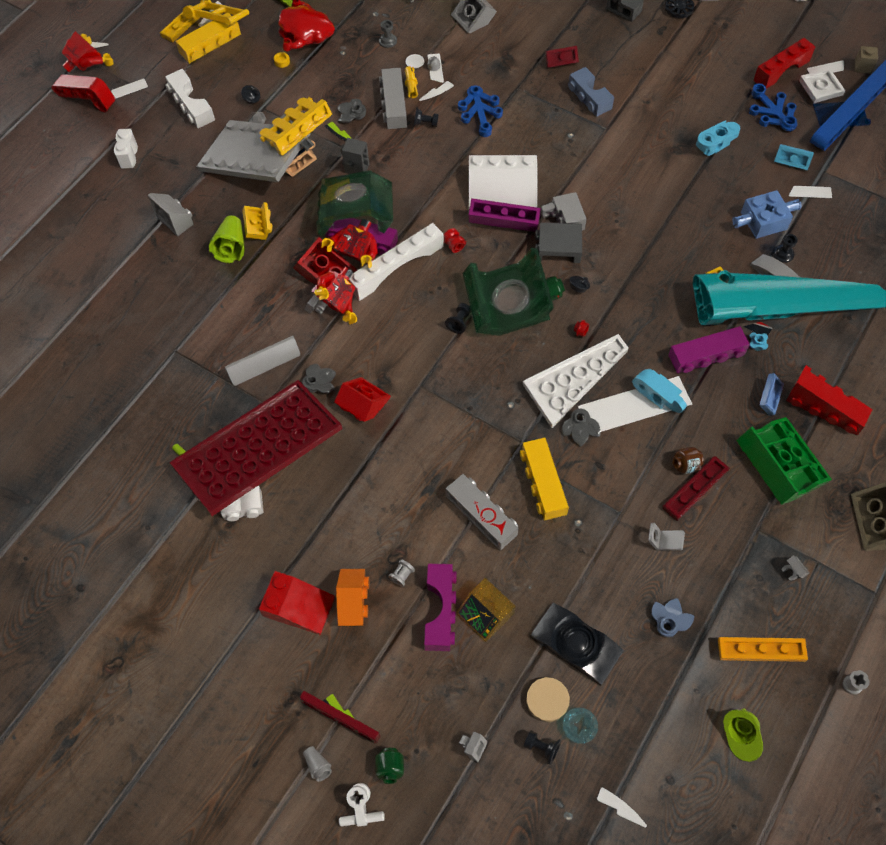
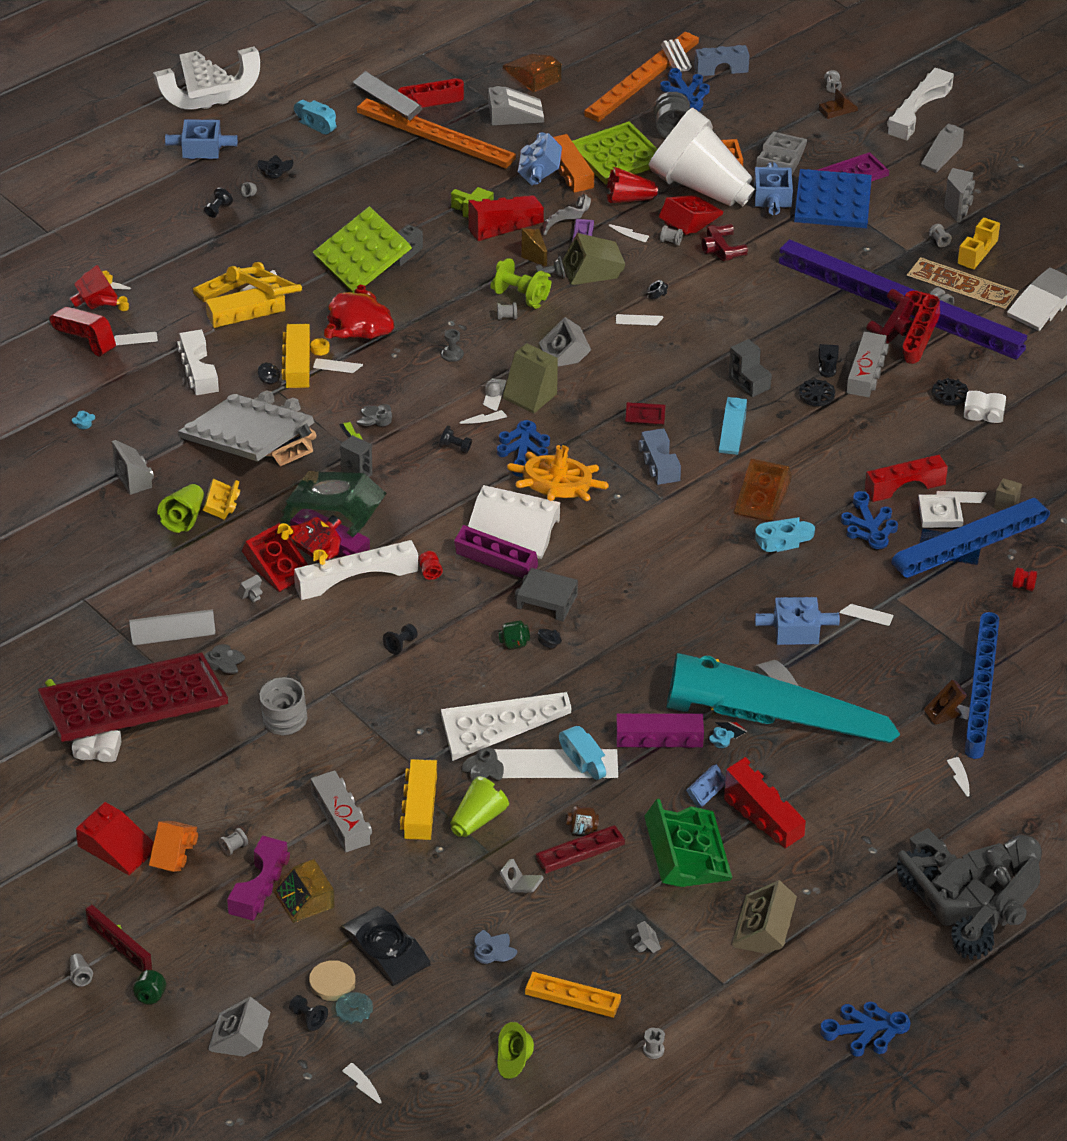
camera: 15 degrees right, 20 degrees down
(113, 175) = (83, 420): none -> medium azure plate
(125, 148) = (107, 395): white brick -> none
(267, 72) = (296, 356): none -> yellow brick
(301, 73) = (336, 365): none -> white sticker
(303, 124) = (300, 409): yellow fence -> none
(337, 292) = (276, 580): torso -> none
(361, 398) = (251, 678): red slope -> none
(361, 816) = (110, 1005): white piece -> none
(391, 408) = (283, 706): none -> light grey wheel
(393, 98) = (428, 413): light grey brick -> none
(411, 82) = (457, 401): yellow pin -> none
(415, 61) = (473, 381): white sticker -> none
(464, 48) = (531, 378): none -> olive slope
(474, 746) = (239, 991): light grey tile -> none
(490, 788) = (240, 1028): none -> light grey slope
(508, 296) = (460, 631): clear green panel -> none
(521, 130) = (557, 475): none -> light orange piece
(565, 210) = (568, 563): light grey hinge -> none
(581, 328) = (530, 679): red plate -> none
(598, 475) = (478, 807): none -> lime cone
(633, 50) = (733, 425): none -> medium azure slope
(683, 102) = (763, 490): none -> clear orange slope
(784, 252) = (801, 664): black piece -> none
(794, 157) = (862, 573): medium azure hinge -> none

